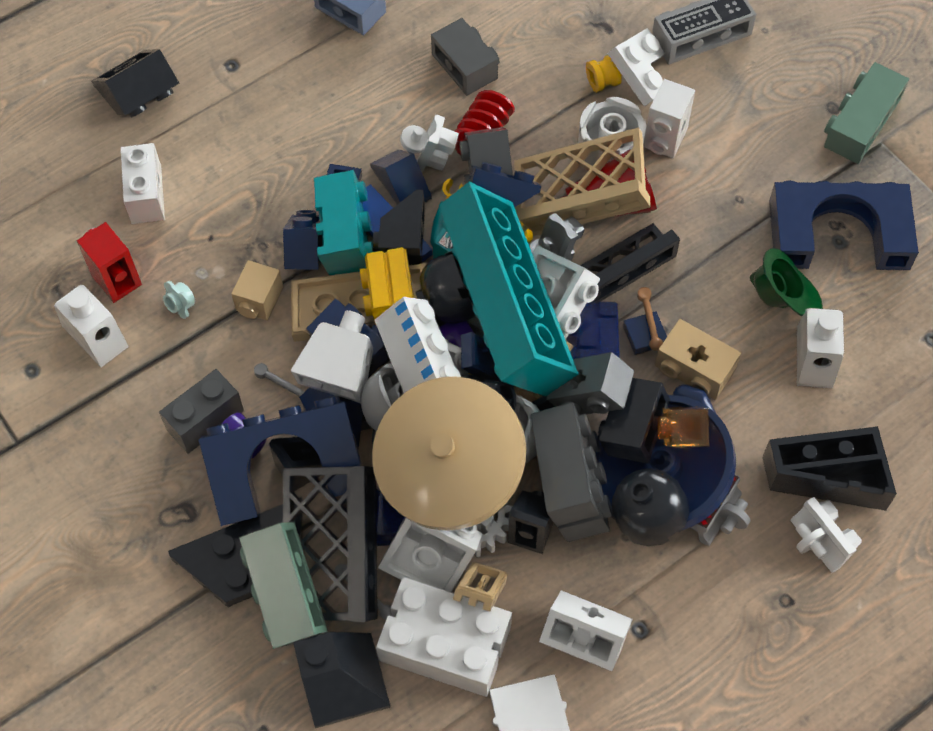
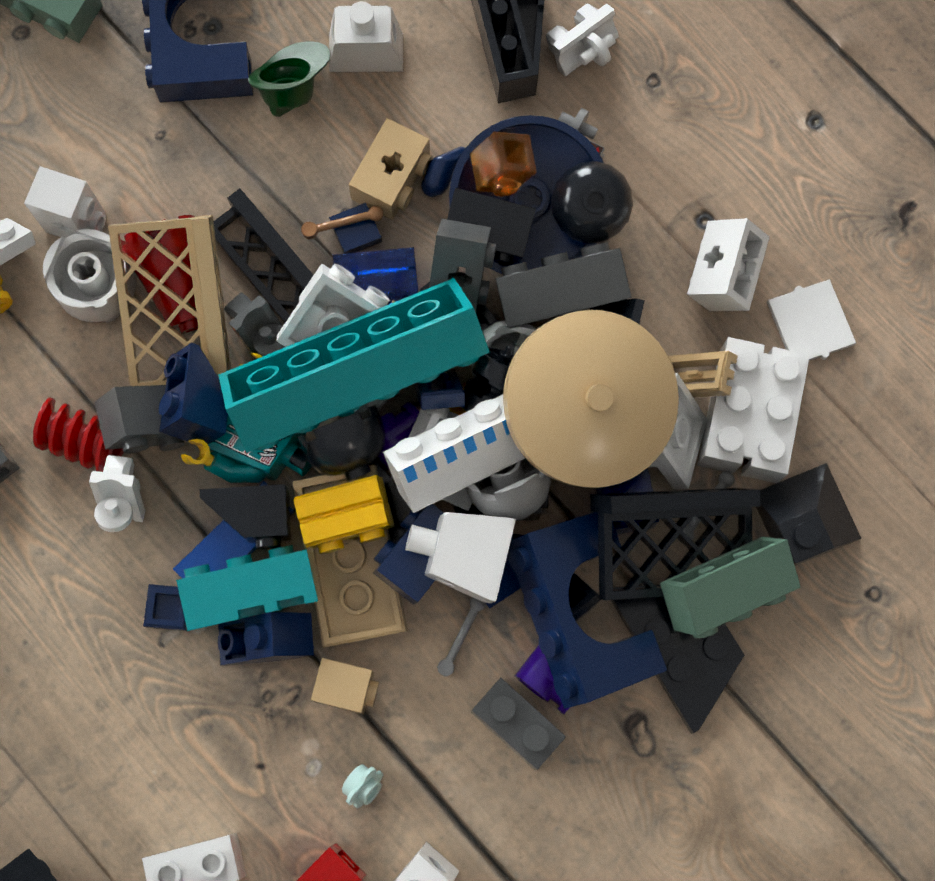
camera: 100 degrees left, 15 degrees up
(400, 175) = (158, 532): dark blue slope -> none

